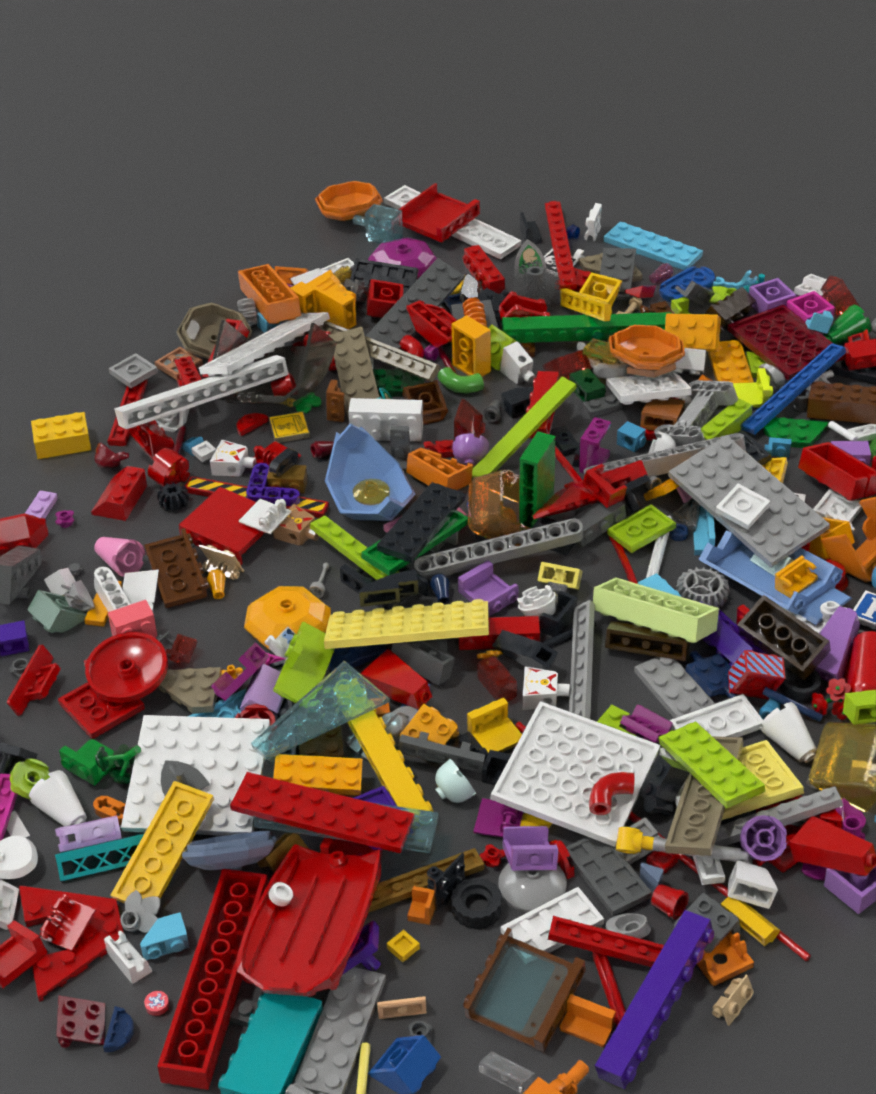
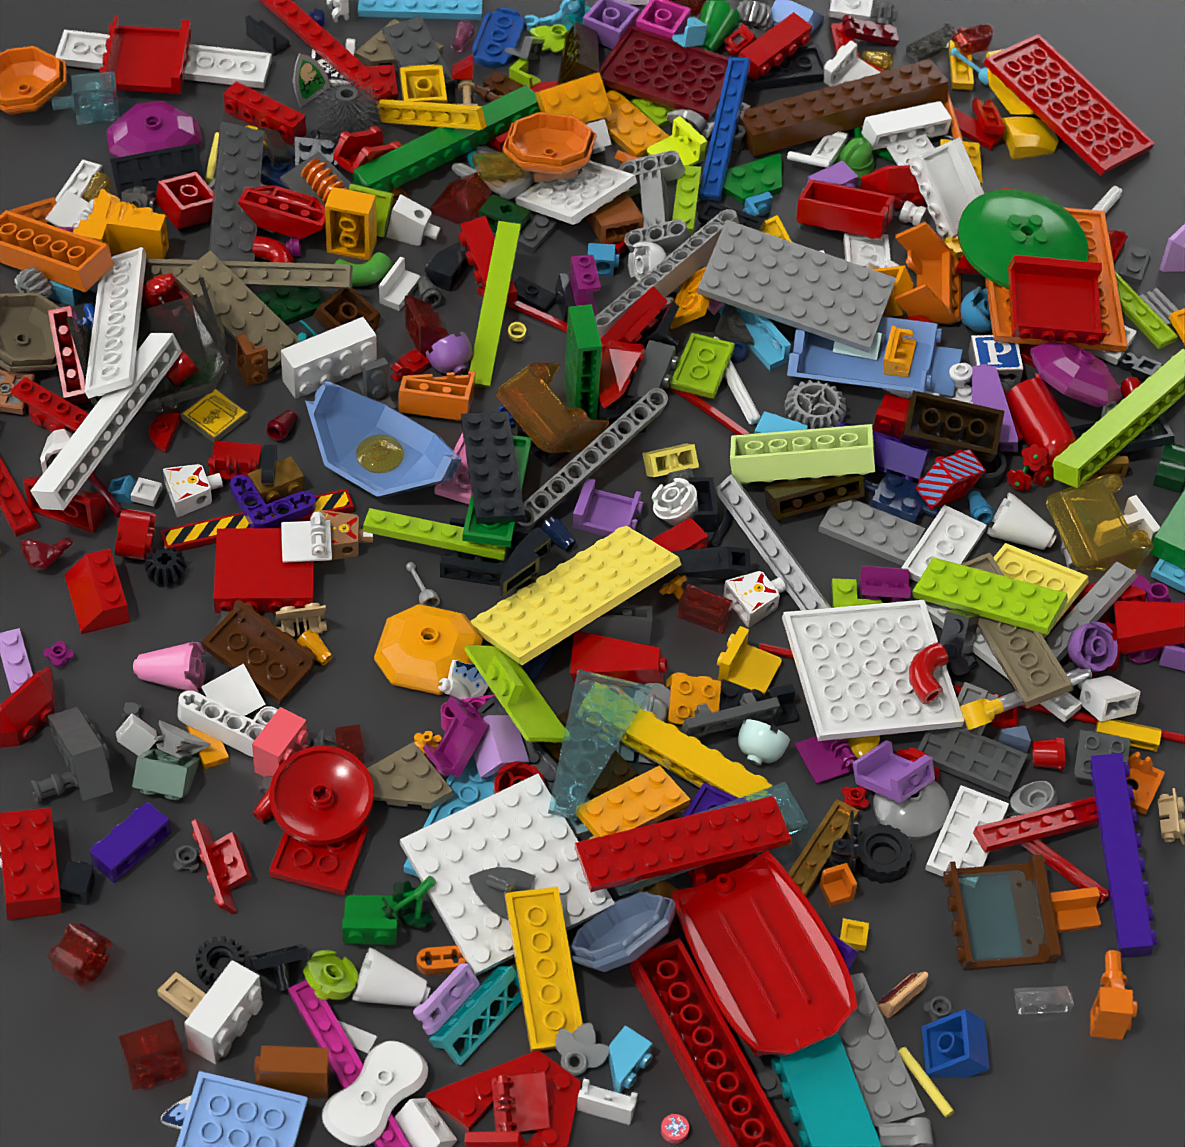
camera: 40 degrees left, 10 degrees up
(280, 894) = (713, 950): white tile -> none
(445, 359) = (317, 250): dark red bar -> none
(477, 395) = (397, 285): none -> white panel
(601, 488) = (645, 340): red panel -> none
(742, 506) = (807, 297): white plate -> none
(783, 700) = (994, 492): dark blue bar -> none

